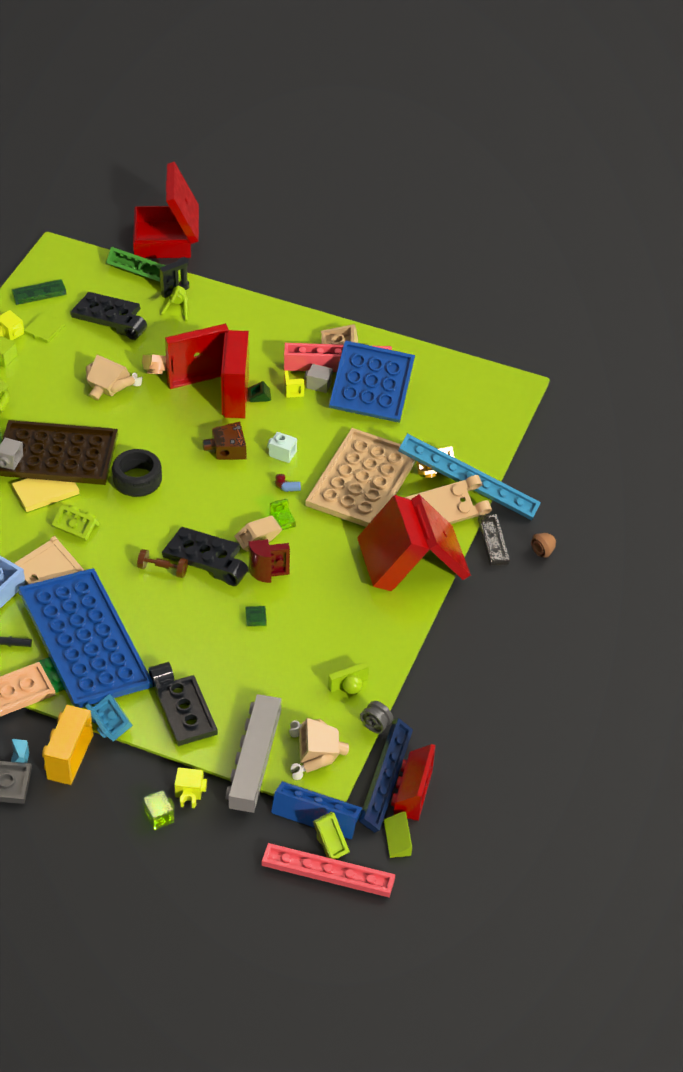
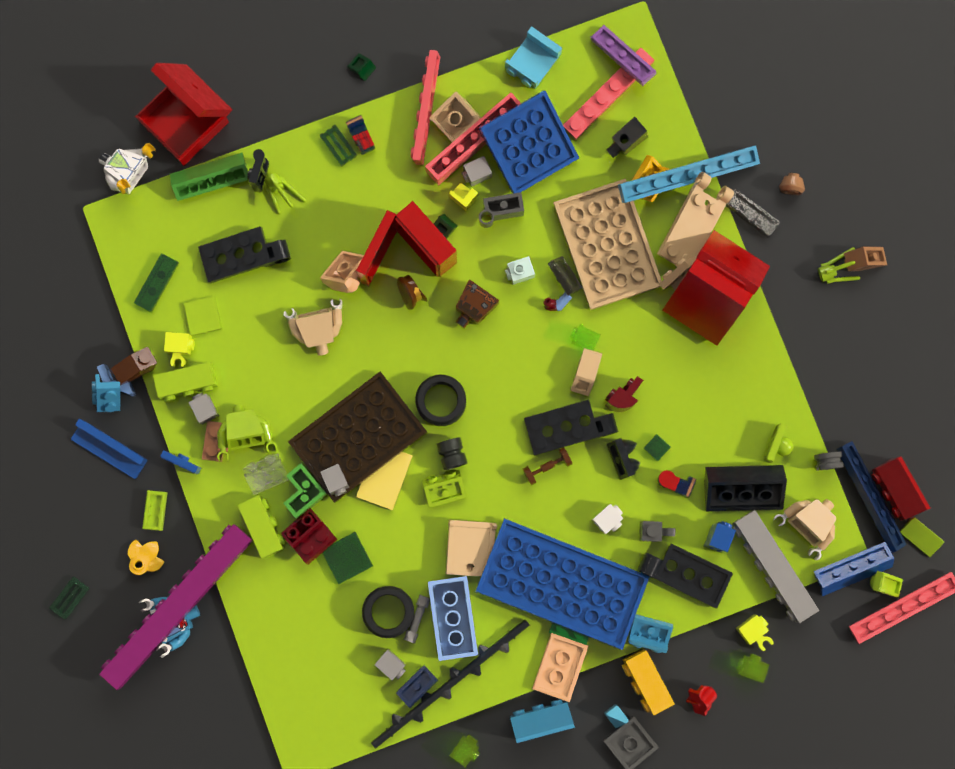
camera: 40 degrees left, 35 degrees up
(96, 795) = (702, 699): none -> red piece
(97, 229) = (126, 167): none -> torso
(106, 505) = (452, 453): none -> pearl dark grey wheel
(166, 625) = (608, 519): none -> white brick
(189, 657) = (653, 531): none -> dark grey brick
(191, 402) = (410, 292): none -> reddish brown piece
(226, 594) = (619, 452): none -> black tile
(233, 693) = (720, 537): none -> blue brick
(245, 299) = (329, 133): none -> clear green tile
(245, 650) = (671, 482): none -> leg
(265, 309) = (360, 134): none -> leg
(299, 690) = (745, 488): none -> black slope
(310, 403) = (502, 208): none -> dark grey hinge
(310, 471) = (565, 275): none -> clear smoke plate
(311, 287) = (362, 66): none -> dark green slope
(333, 320) = (426, 100): none -> coral plate
(433, 354) = (533, 58): none -> medium azure panel
(448, 429) = (634, 132): none -> black torso
(463, 404) = (602, 99): none -> coral plate
(497, 388) = (623, 55): none -> medium lavender tile
(514, 613) = (828, 272): none -> lime plant
(553, 625) = (866, 258): none -> medium nougat slope

